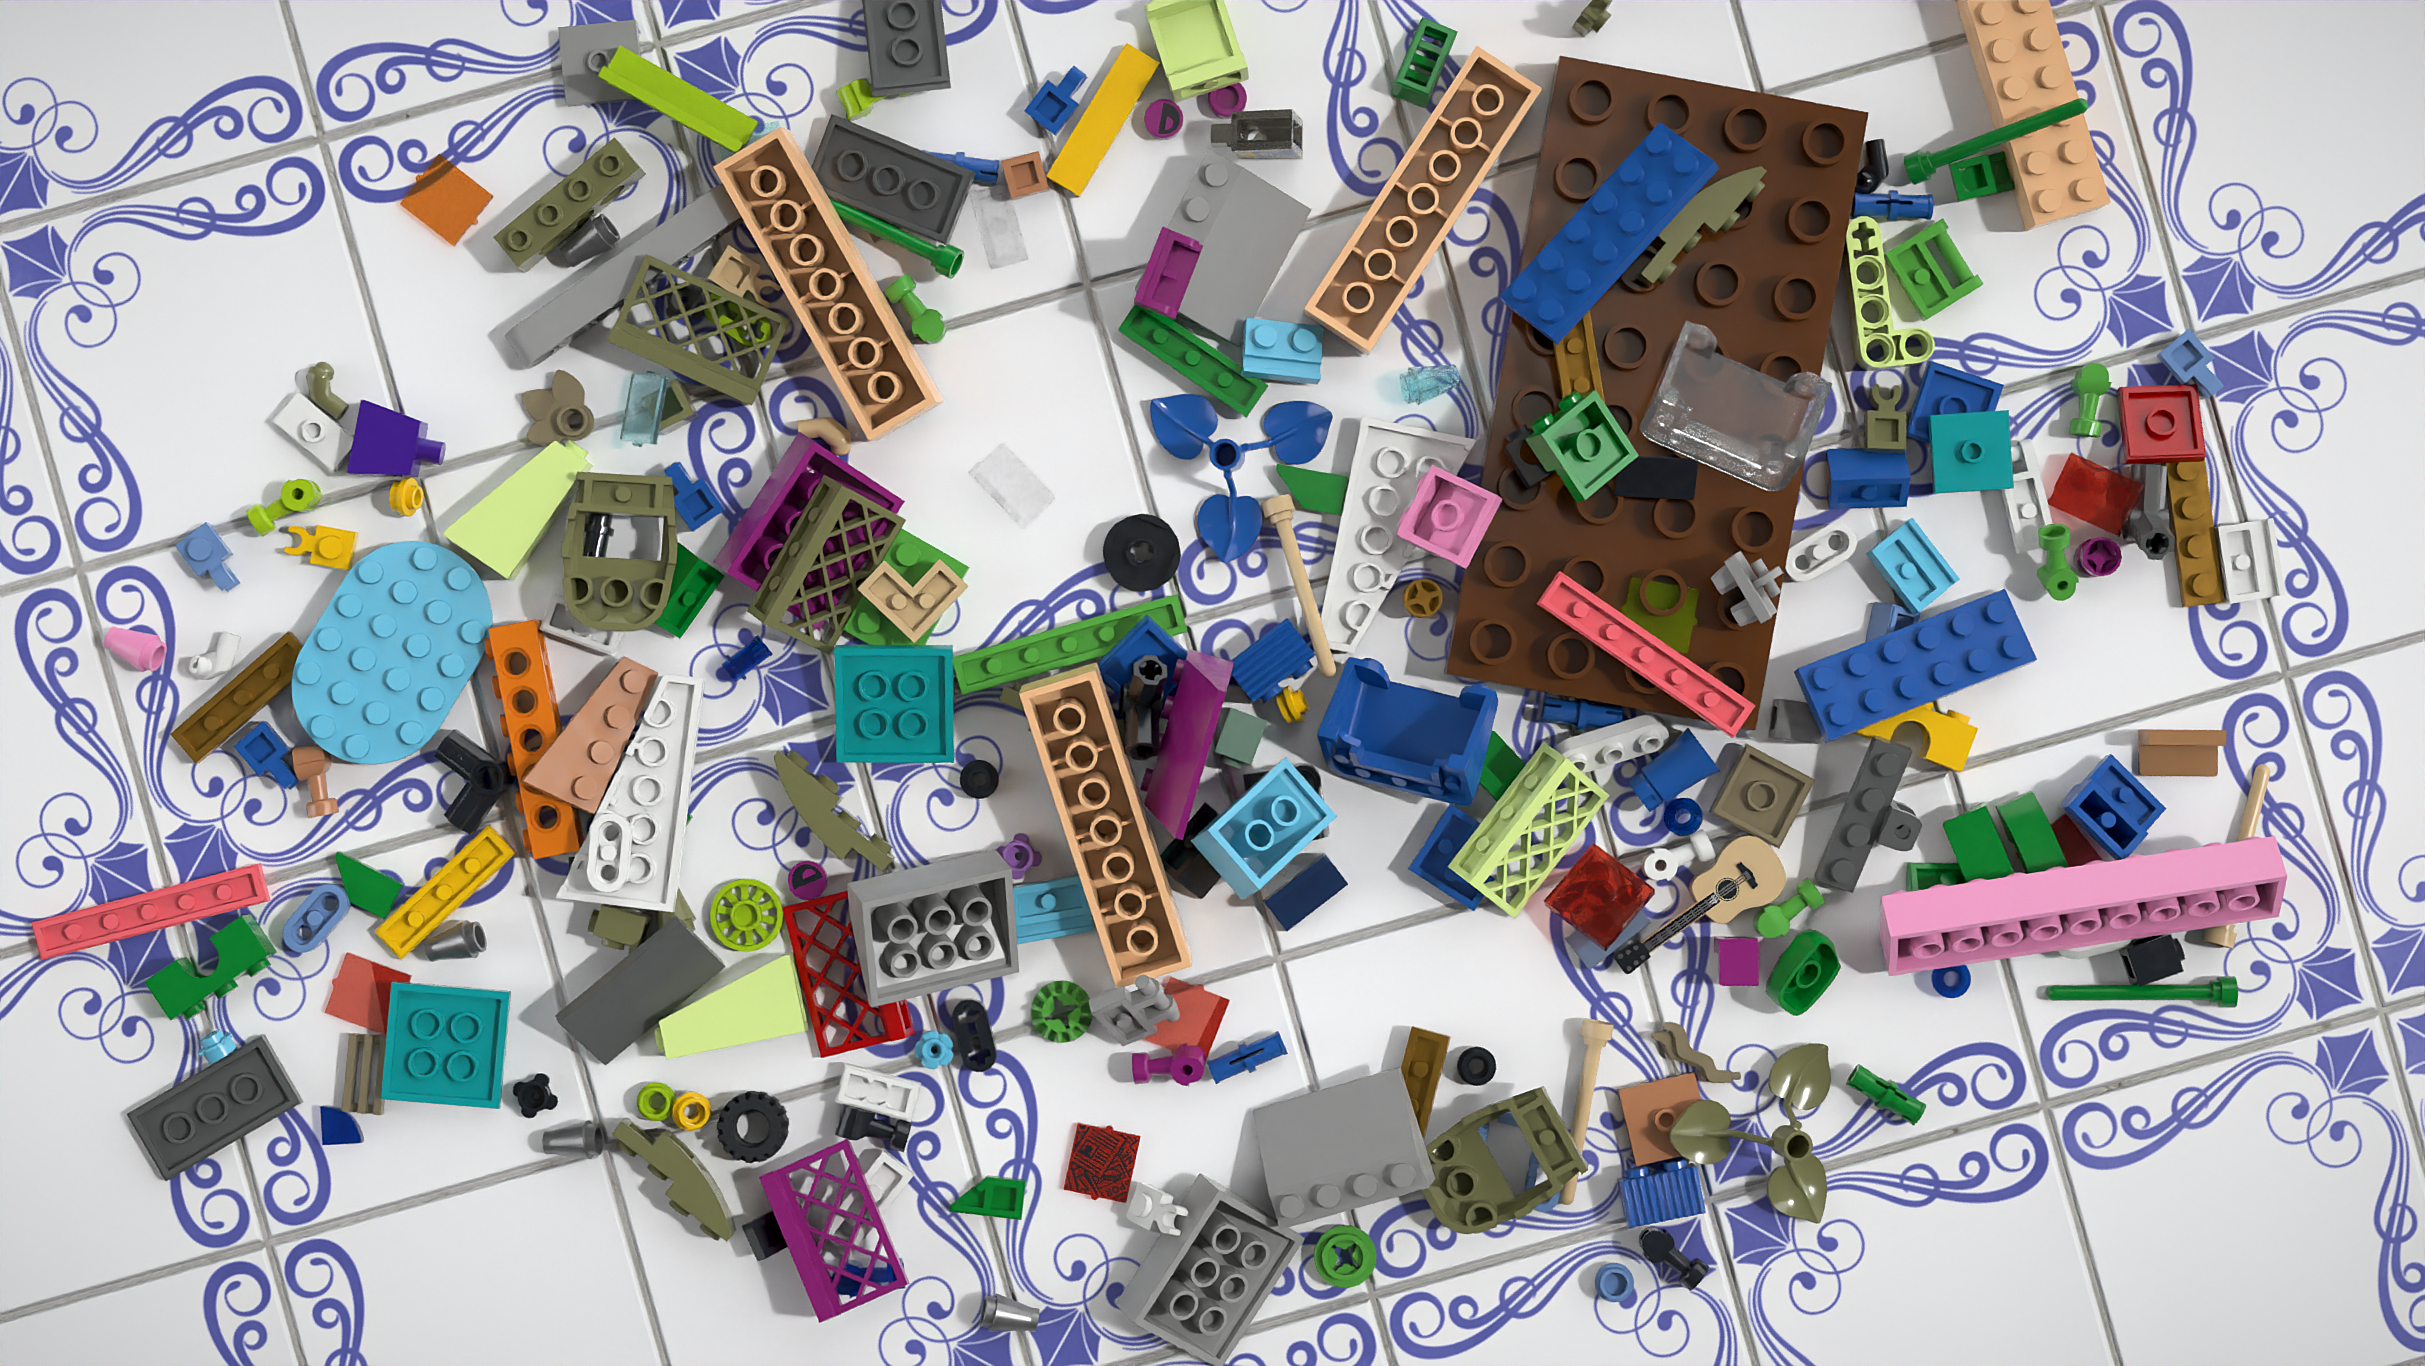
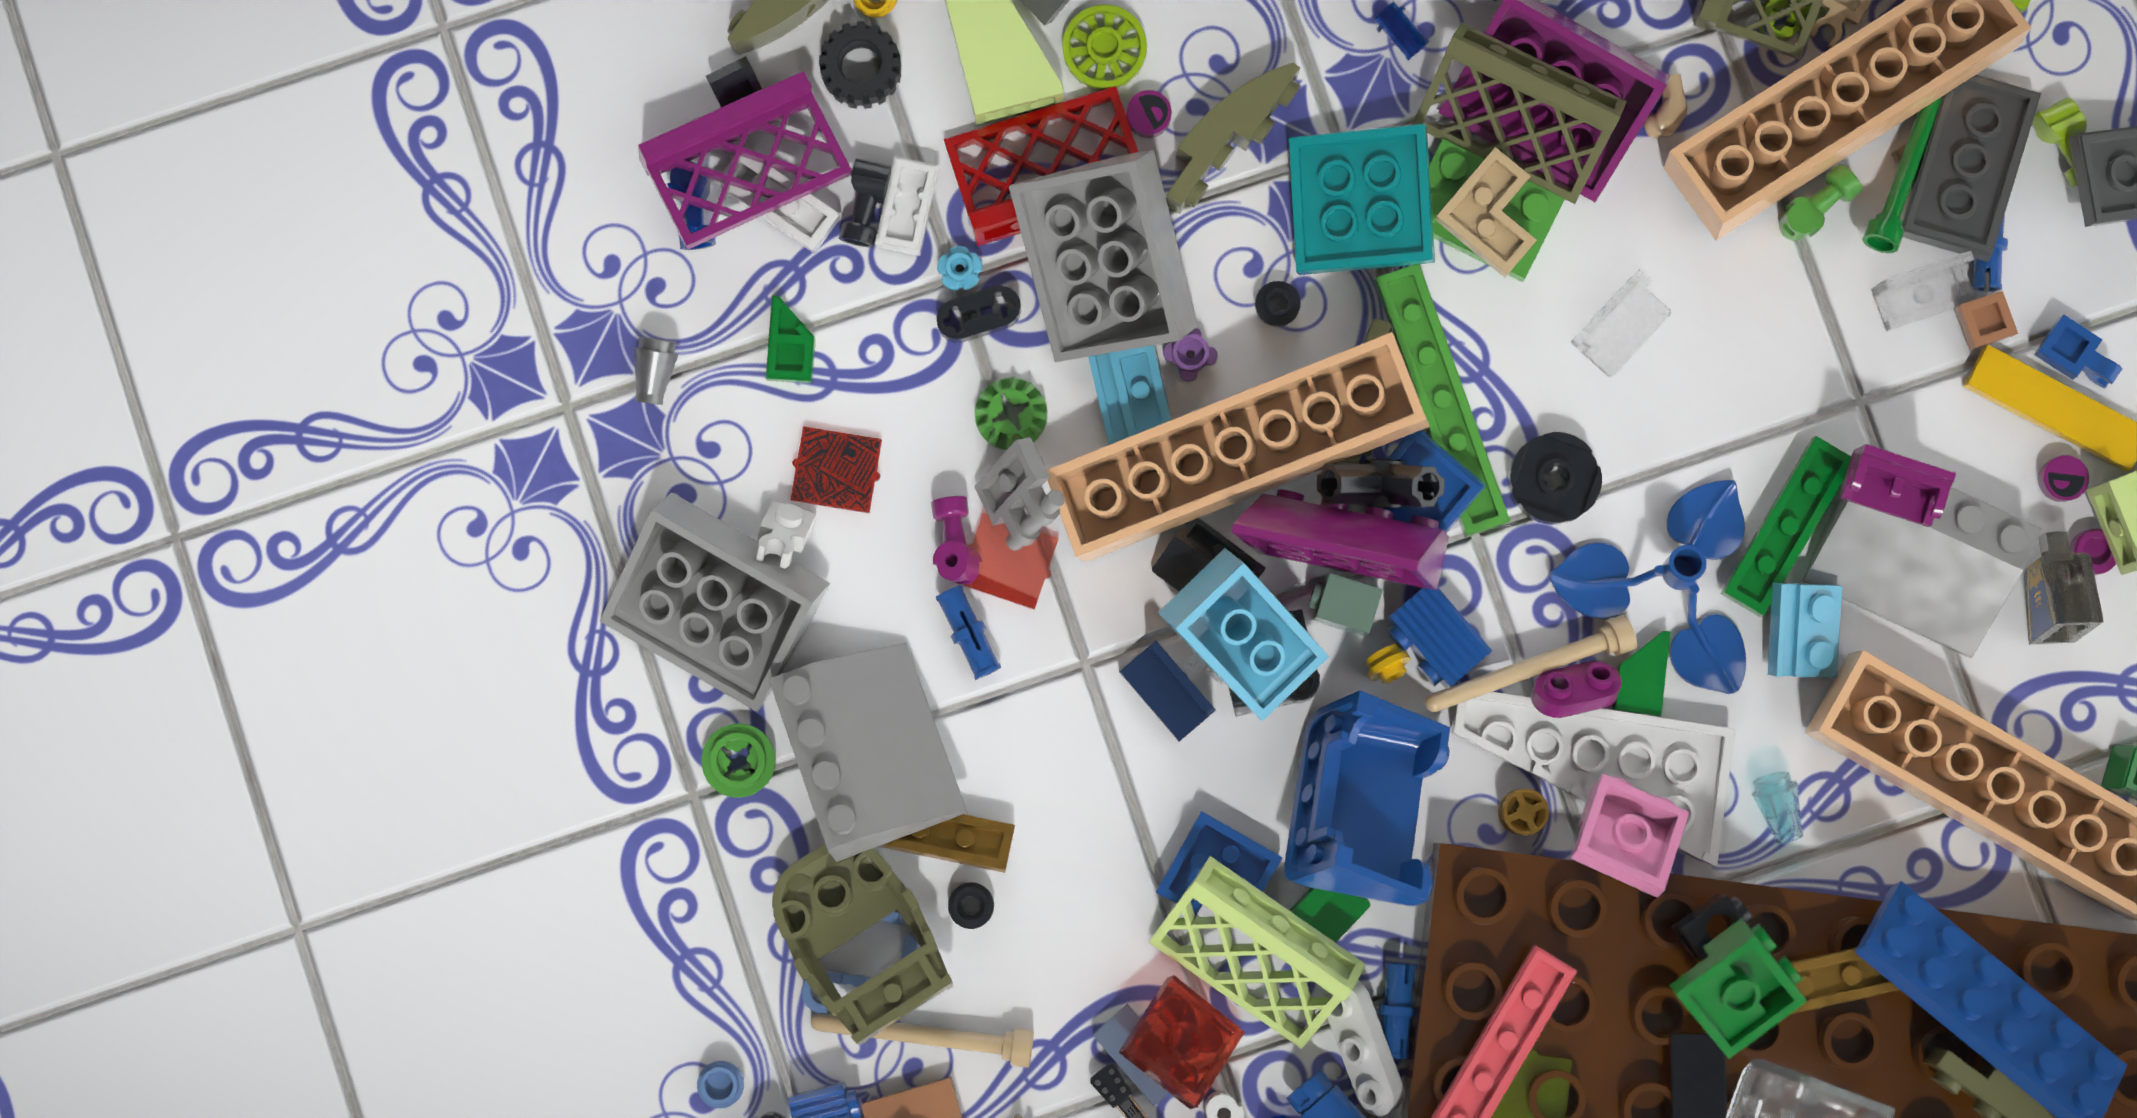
camera: 90 degrees right, 5 degrees down
(1322, 545) = (1582, 687): none -> magenta plate

